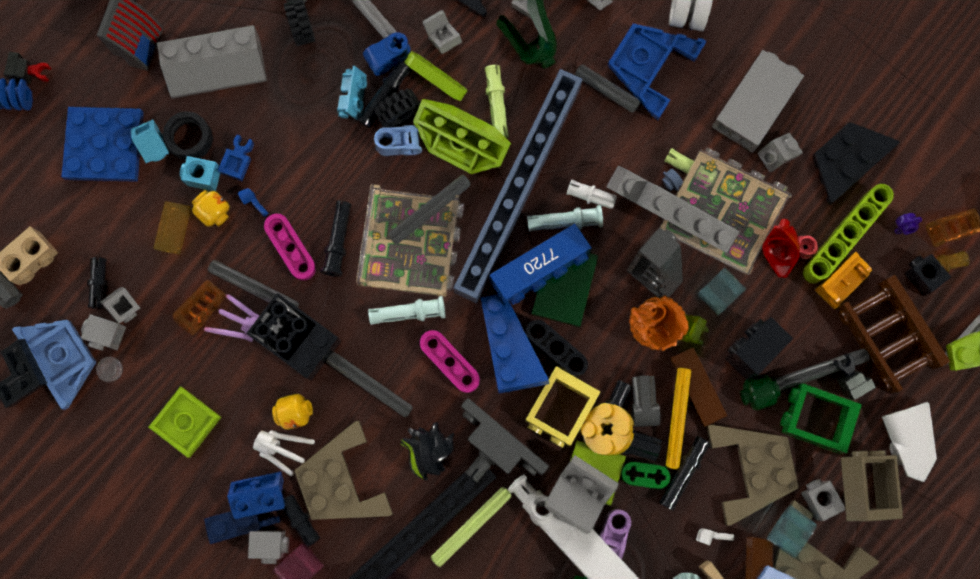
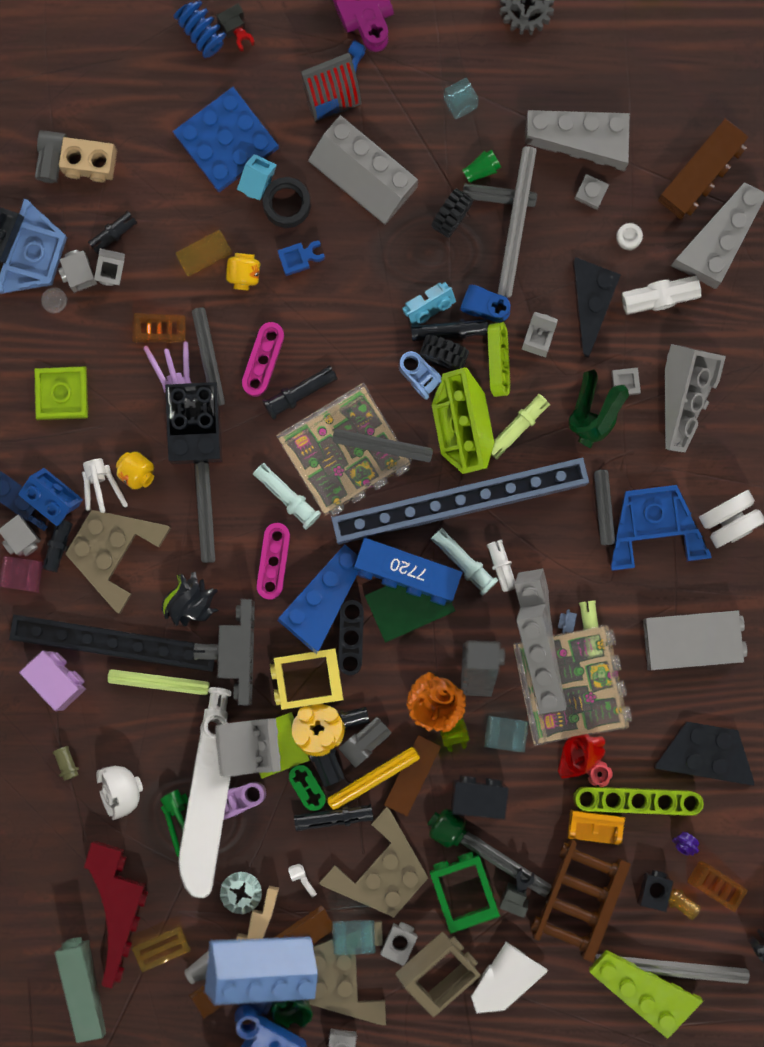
camera: 50 degrees right, 5 degrees up
(207, 181) = (266, 249): medium azure brick -> none
(248, 196) = (276, 290): blue hand -> none
(779, 152) = (664, 692): light grey bracket -> none

